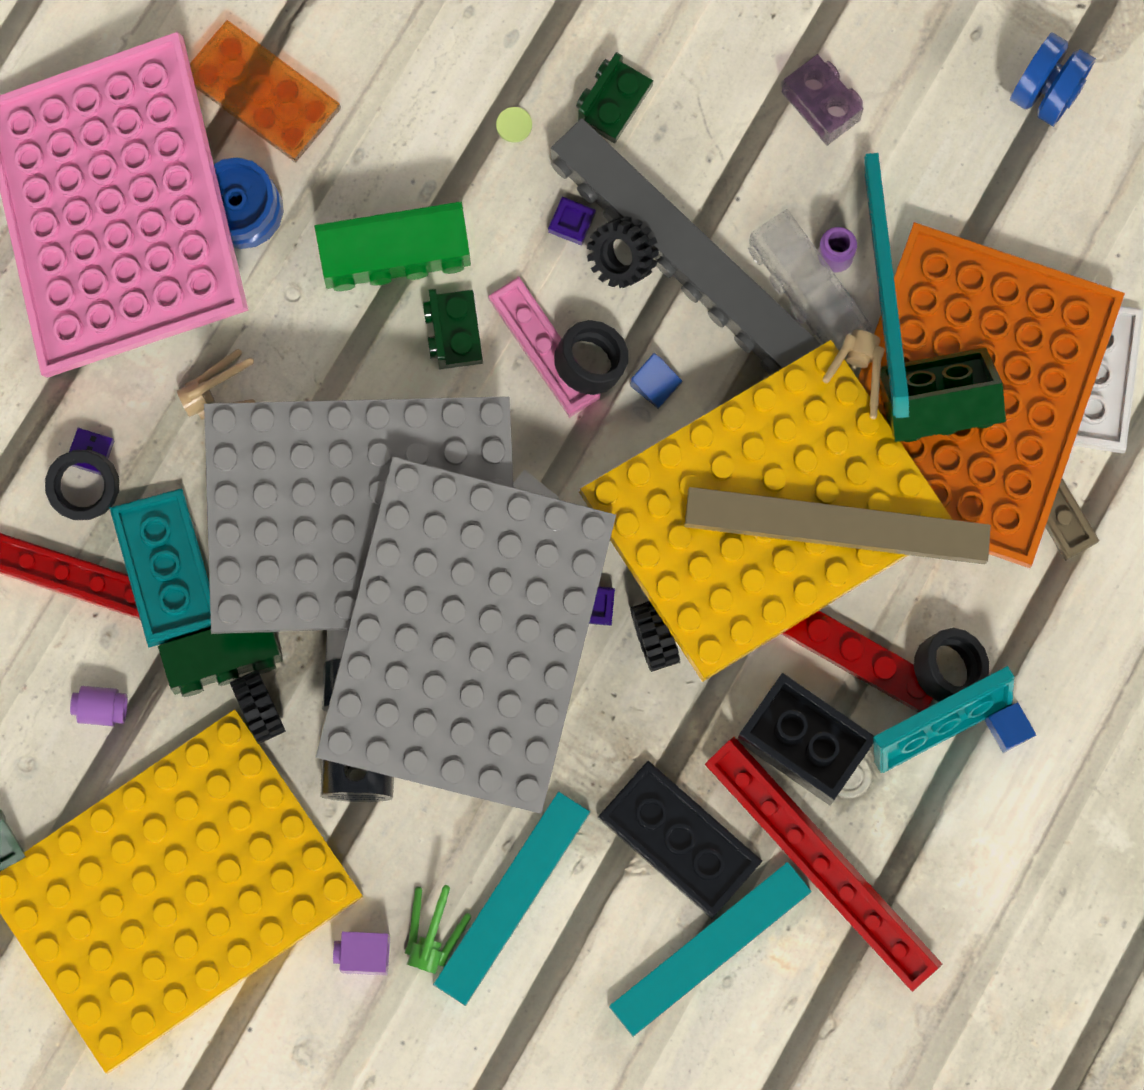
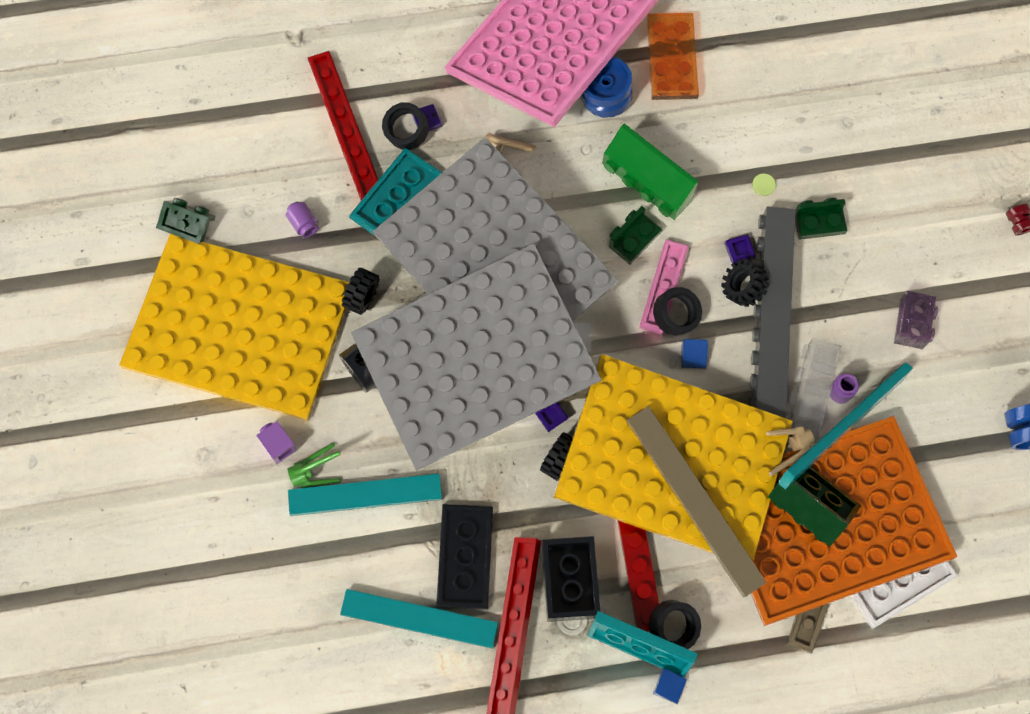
camera: 50 degrees right, 5 degrees down
(216, 658) = (370, 253): dark green brick -> none

